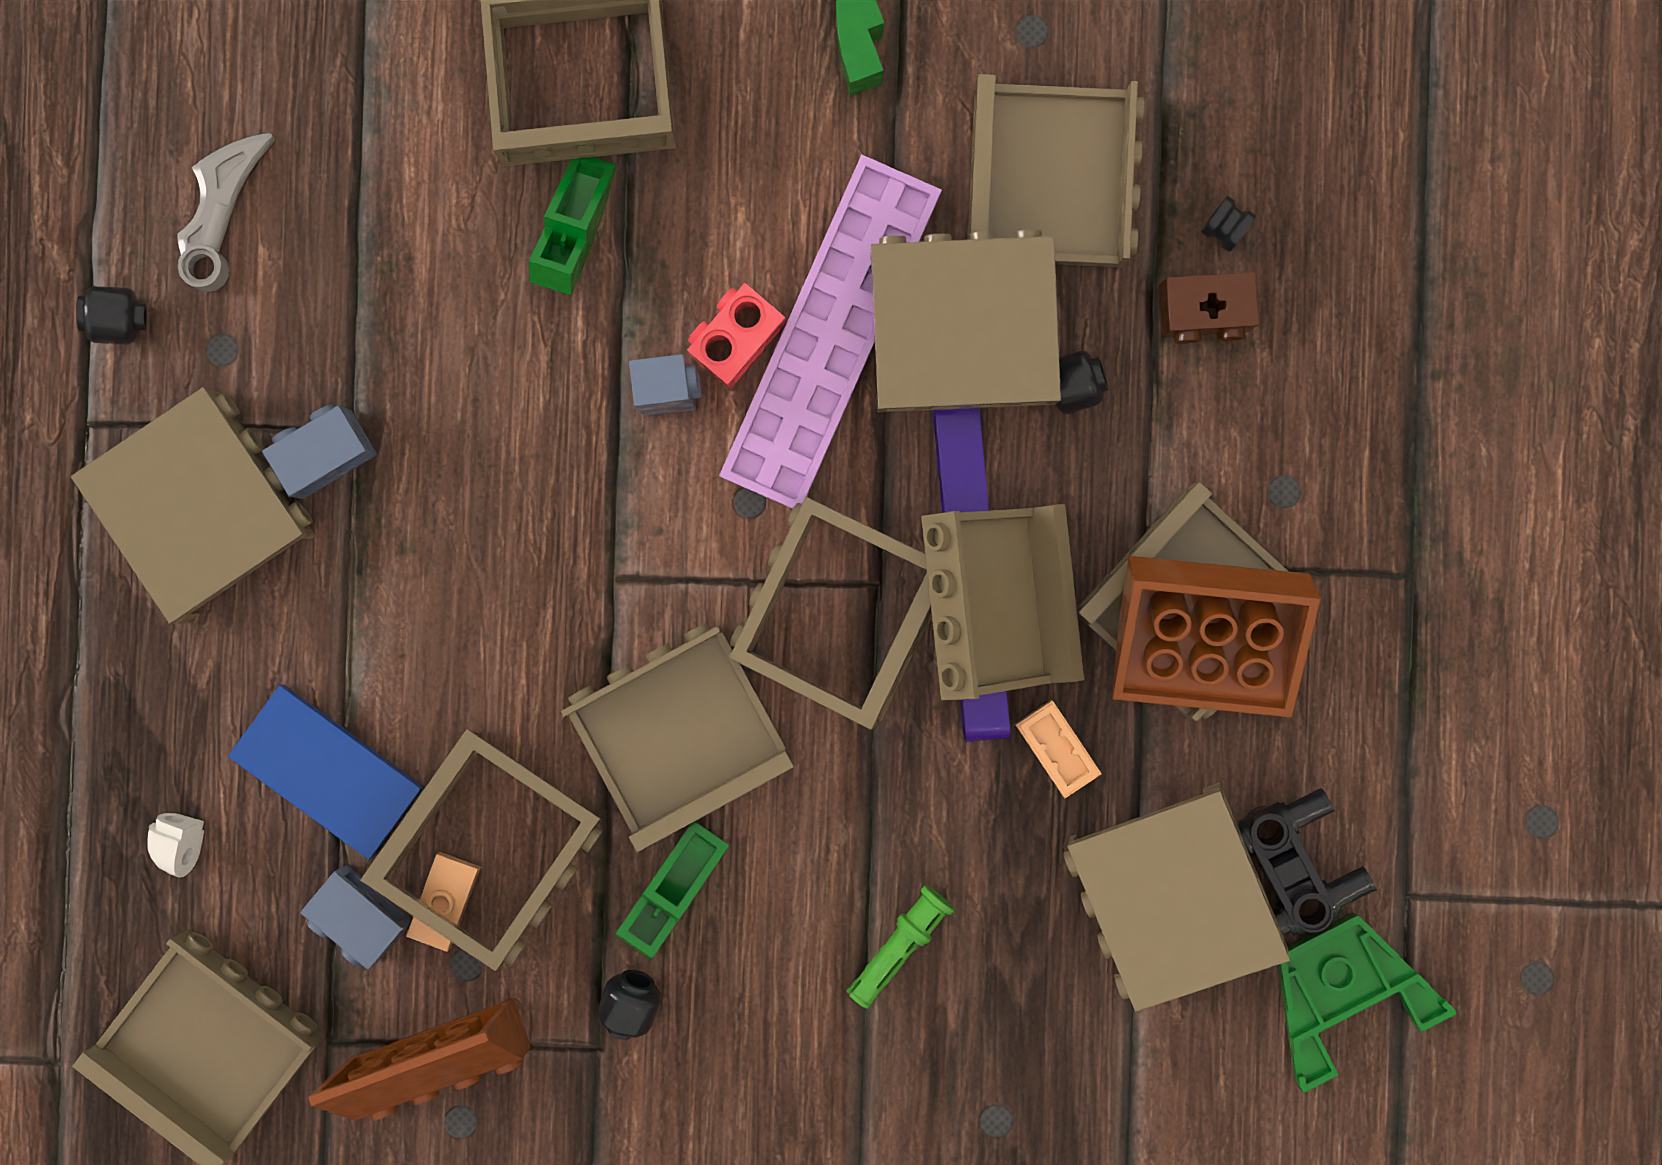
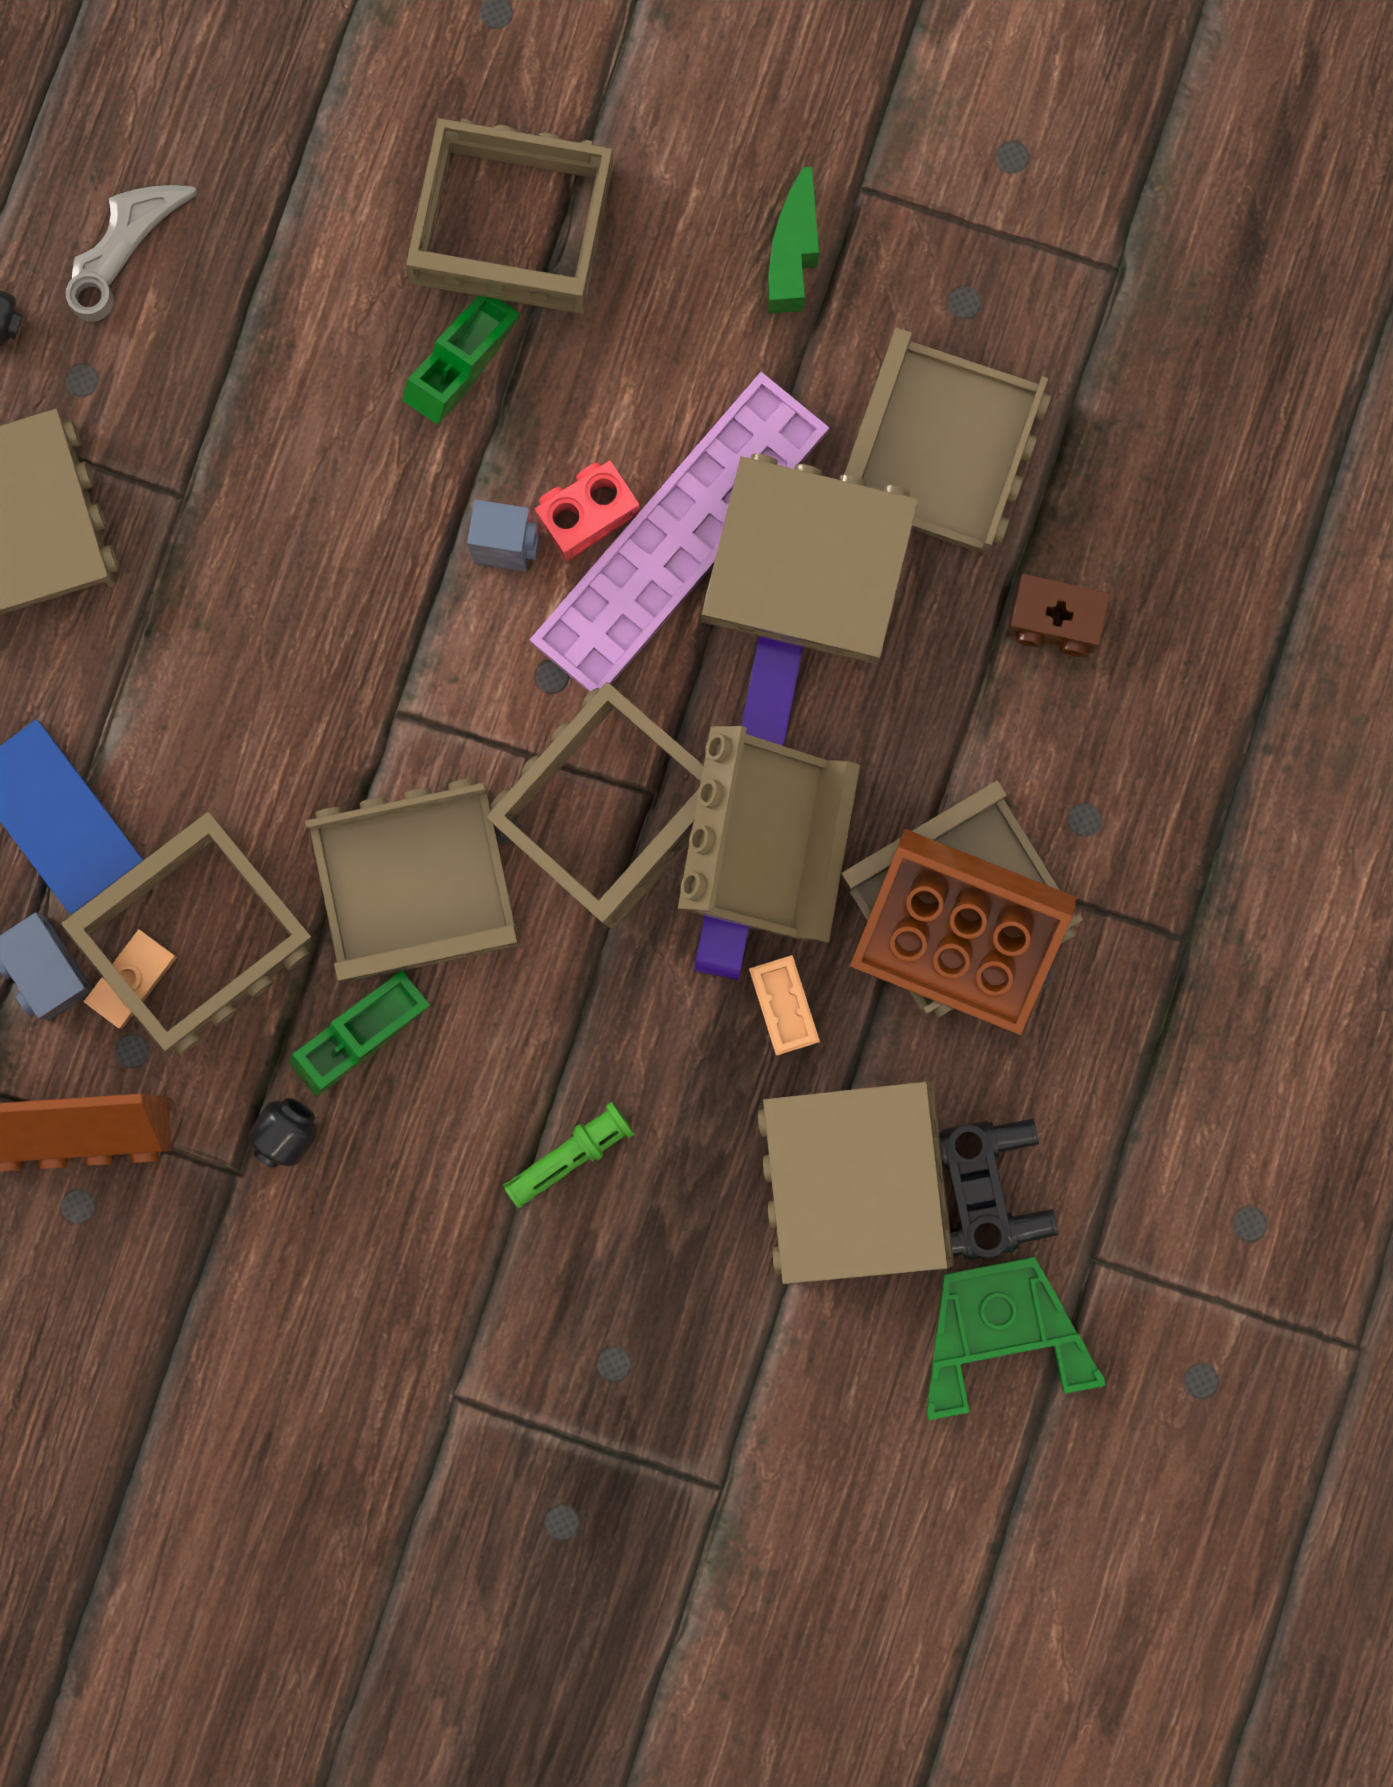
camera: 15 degrees right, 5 degrees down
(318, 451) = (147, 503): sand blue brick -> none
(1080, 382) = (908, 651): black head -> none
(1228, 223) = (1100, 541): black wheel -> none

